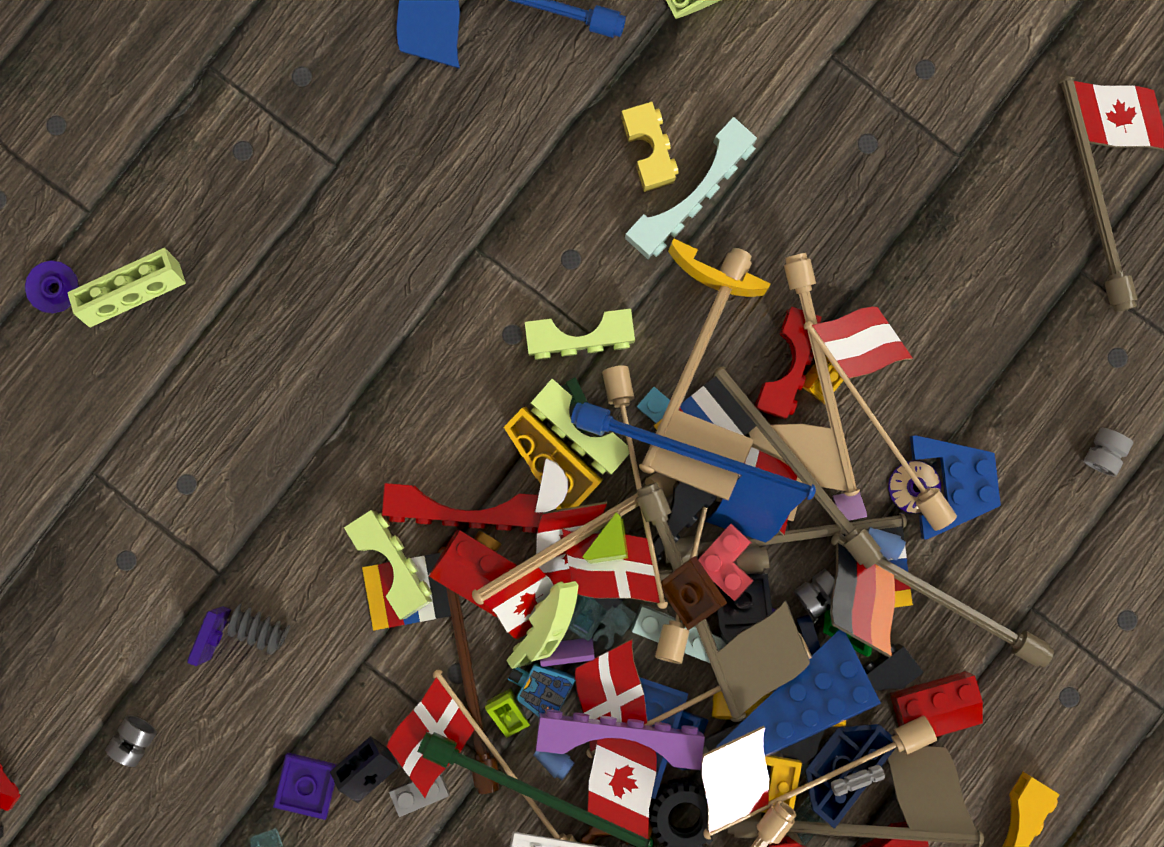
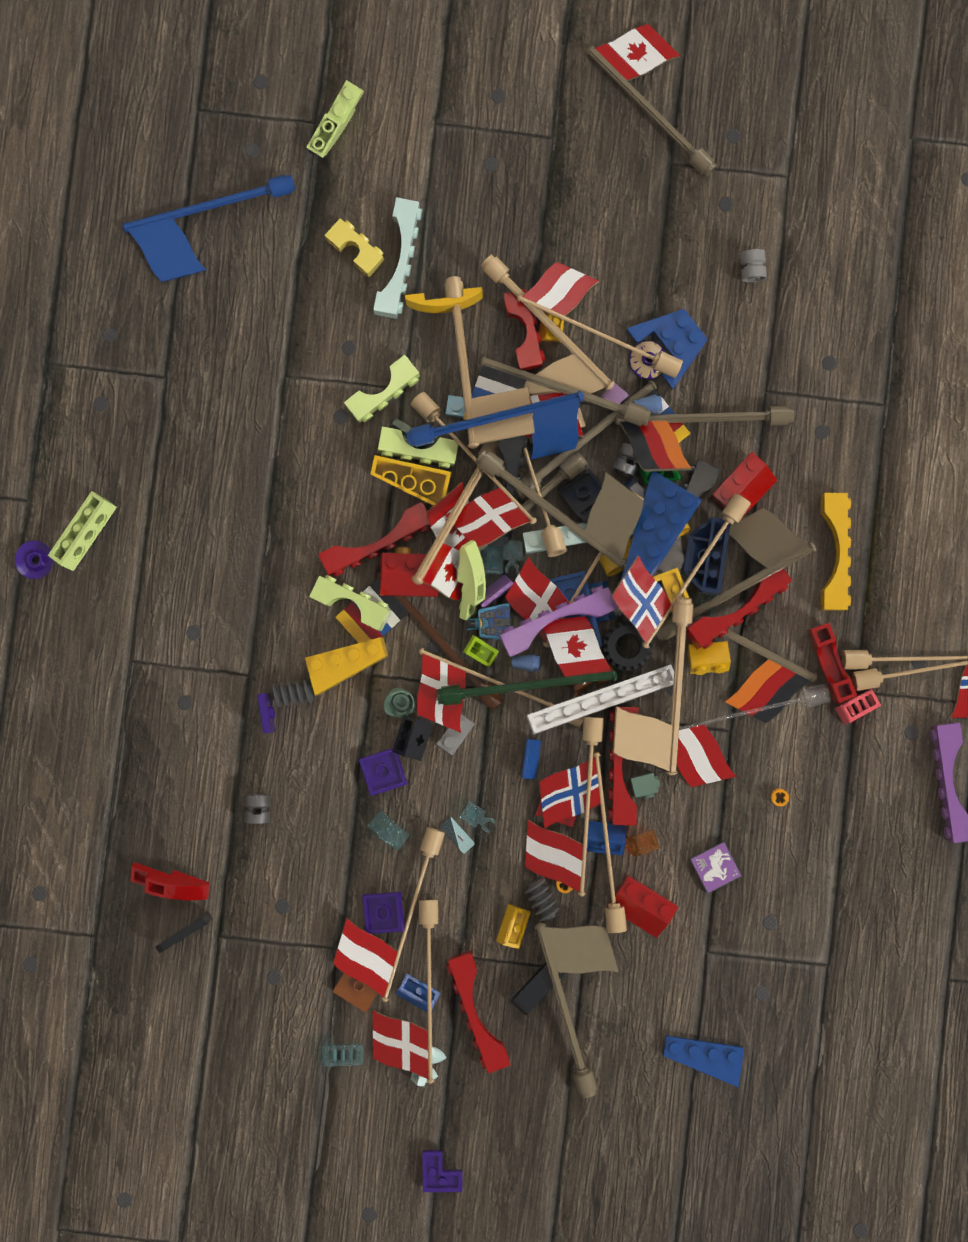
camera: 30 degrees left, 0 degrees up
(331, 629) = (338, 665): none -> yellow wedge
(374, 717) = (399, 702): none -> sand green hair
(553, 487) = (423, 492): white tile -> none
(609, 544) = (478, 504): lime slope -> none
(692, 593) = (546, 502): reddish brown plate -> none
(720, 560) = (554, 477): coral plate -> none
(857, 780) = (717, 556): light grey axle -> none

